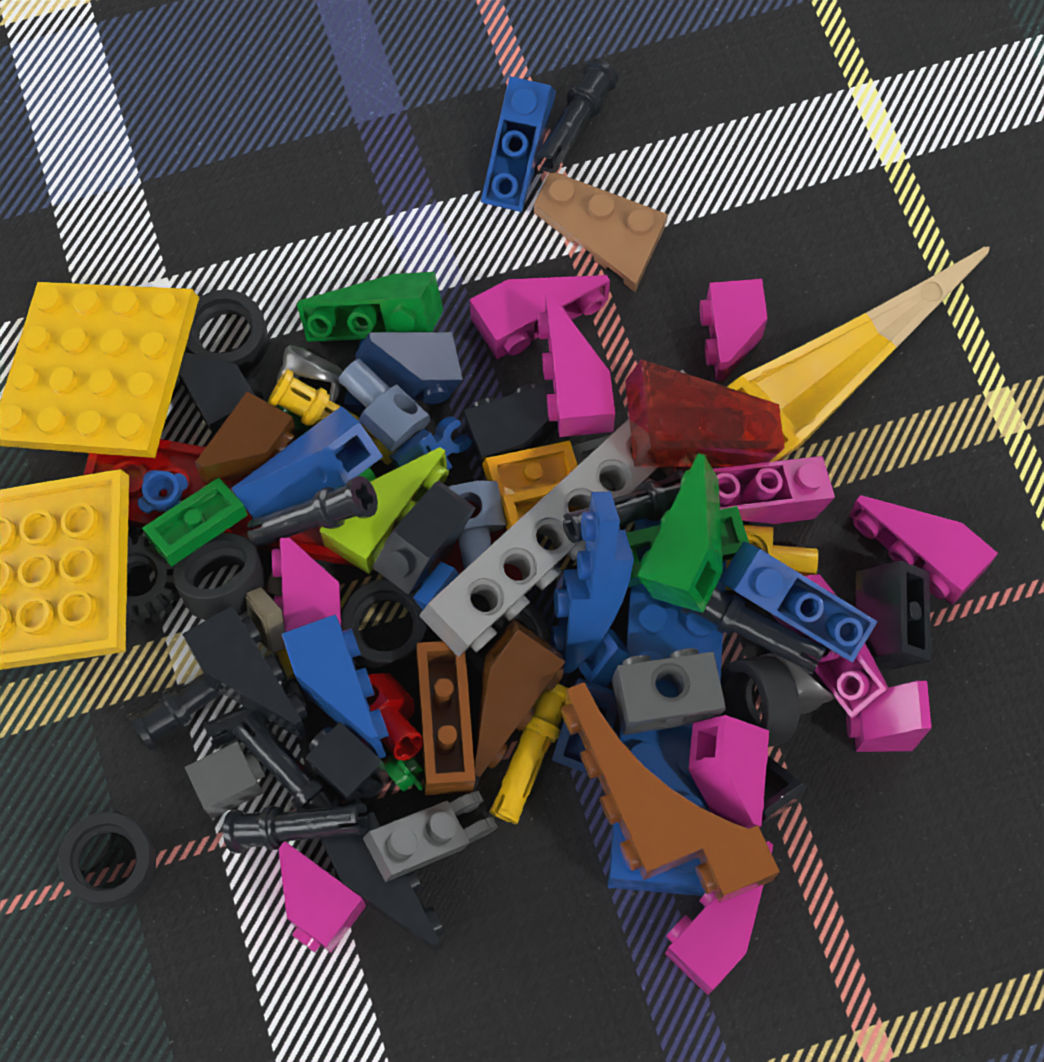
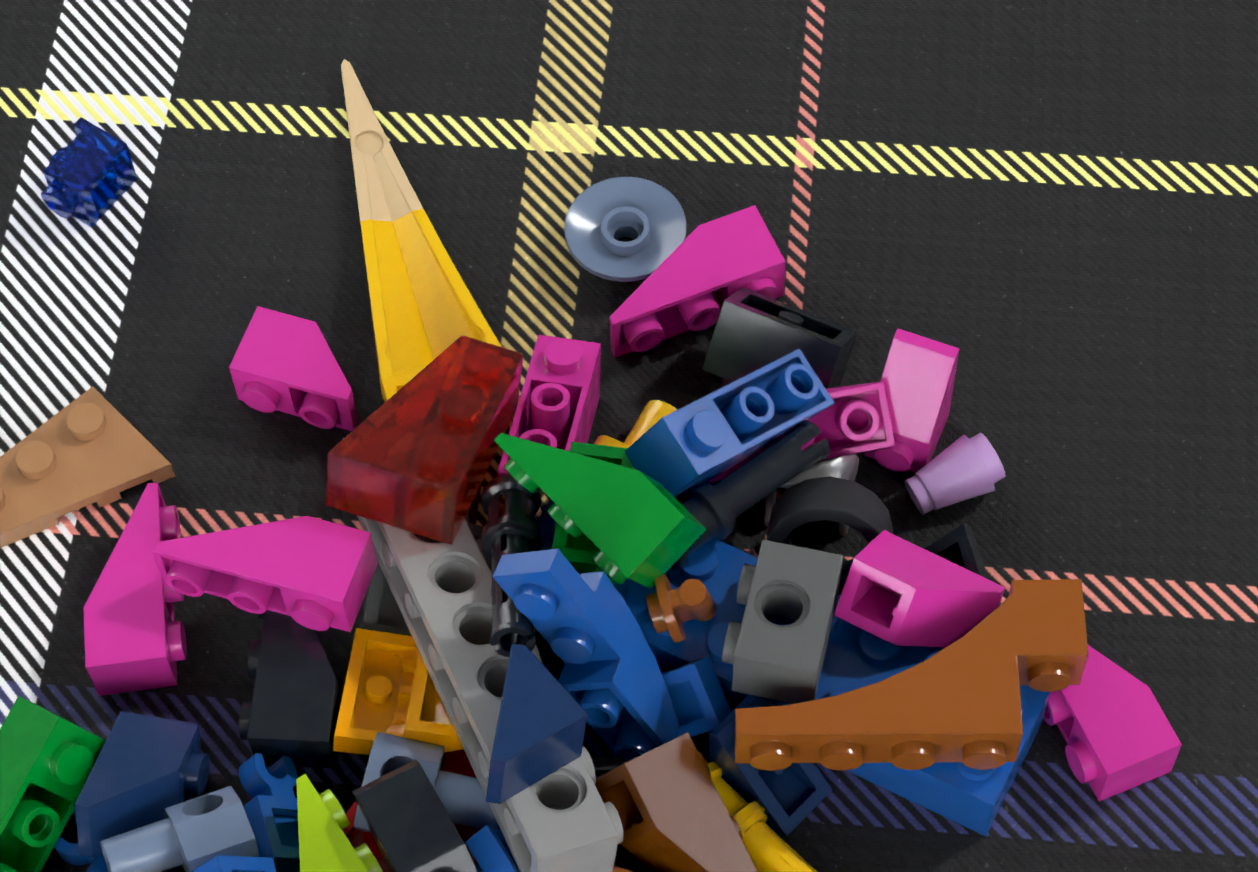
camera: 65 degrees left, 10 degrees down
(507, 560) = (535, 729): none -> dark blue slope
(648, 616) = (672, 607): none -> dark orange plate
(815, 137) = (88, 174): none -> clear blue brick
(860, 771) = (957, 474): none -> lavender cone
(946, 461) = (619, 210): none -> sand blue dish

